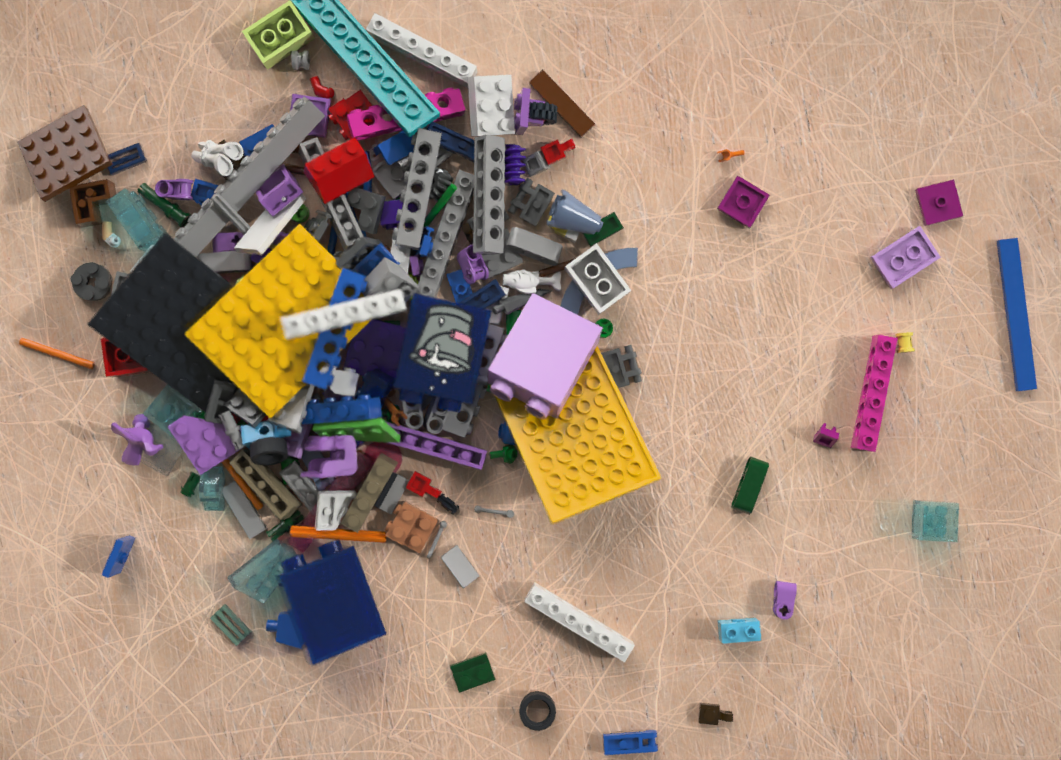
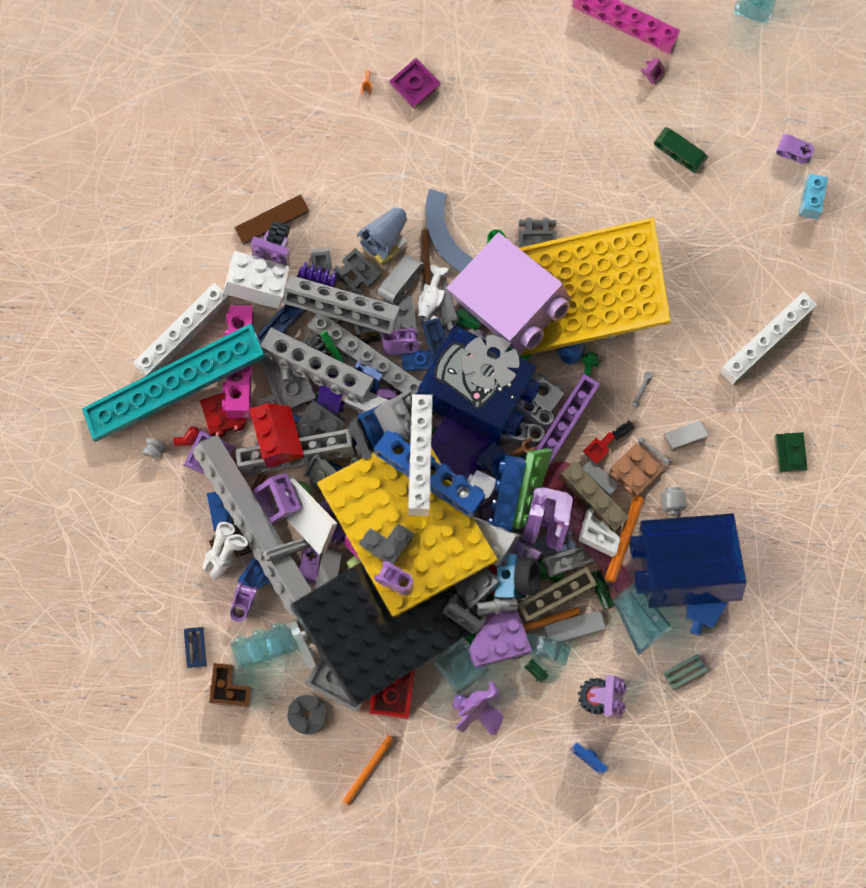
camera: 70 degrees left, 10 degrees down
(64, 153) = (173, 701): plate -> none
(108, 236) = (268, 684): arm -> none
(171, 209) = (261, 614): dark green pin -> none
(181, 555) = (603, 696): none -> medium lavender plate
(217, 323) = (391, 577): none -> medium lavender piece
(249, 312) = (390, 548): none -> dark grey plate
(278, 34) = (123, 460): yellowish green brick -> none
(389, 571) = (673, 501): none -> light grey head
(395, 147) = (266, 379): blue panel -> none
(469, 372) = (501, 372): none -> light grey piece
(537, 726) = (853, 390): black tyre -> none
(555, 151) = (315, 236): red plate -> none
(597, 279) = (450, 229): white brick -> none
(610, 226) = (403, 203): dark green plate -> none

